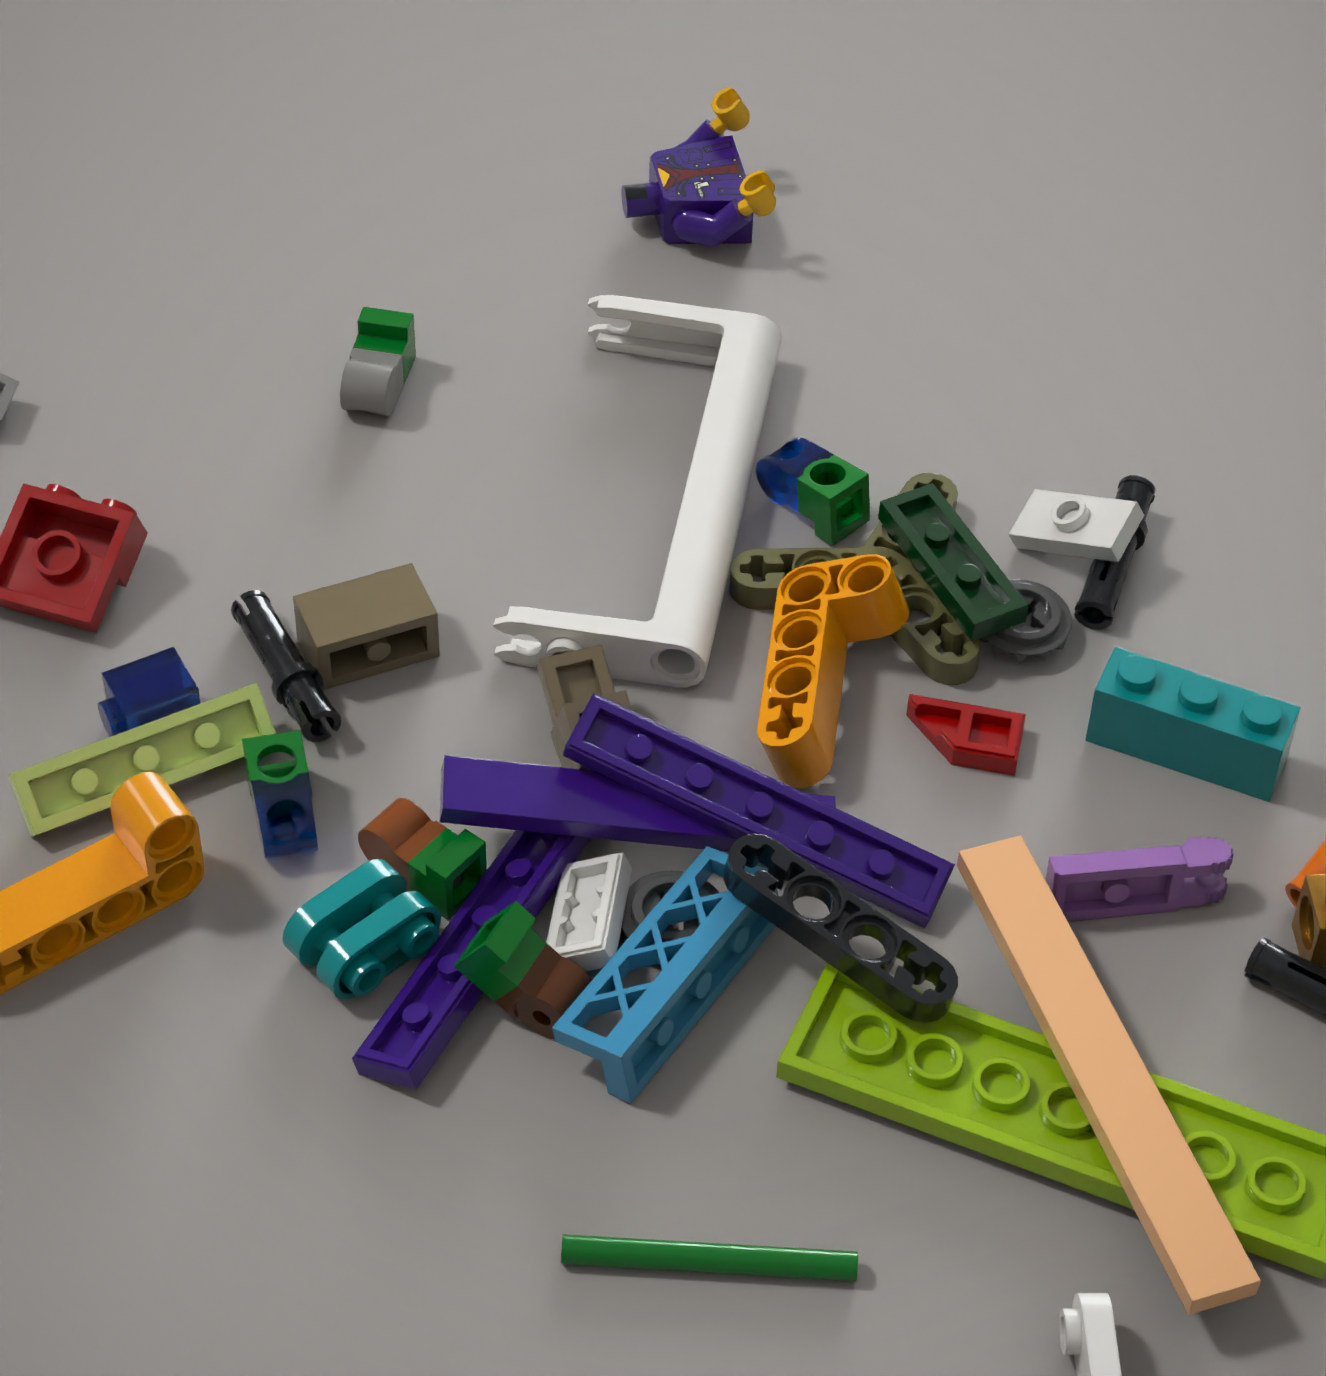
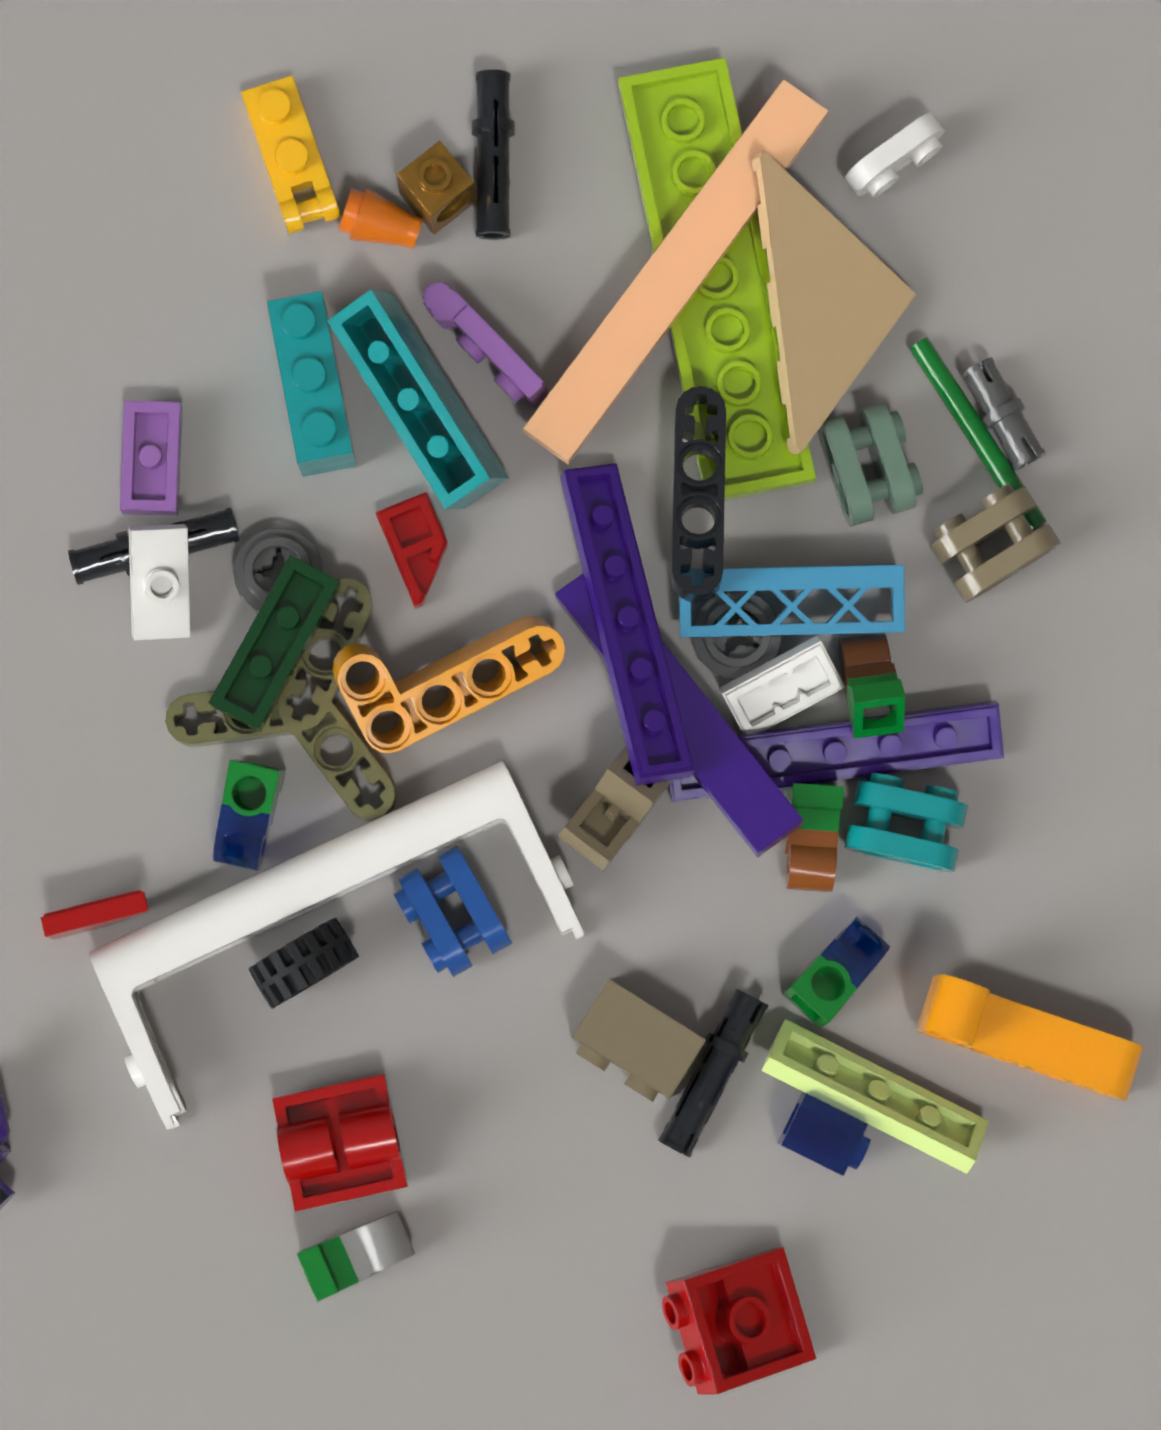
camera: 130 degrees left, 35 degrees up
(478, 400) = (339, 1142): none -> red plate
(599, 568) = (420, 901): none -> blue brick
(603, 1200) = (1003, 511): none -> dark tan brick
(646, 438) = (303, 962): none -> black tyre
(712, 1290) = (1003, 413): none -> dark grey pin
(757, 1120) = (896, 480): none -> sand green brick
(812, 345) = (94, 914): none -> red tile
(974, 1177) = (825, 299): none -> tan tile
(1115, 783) = (417, 399): none -> teal brick
(1204, 588) = (151, 458): none -> medium lavender plate

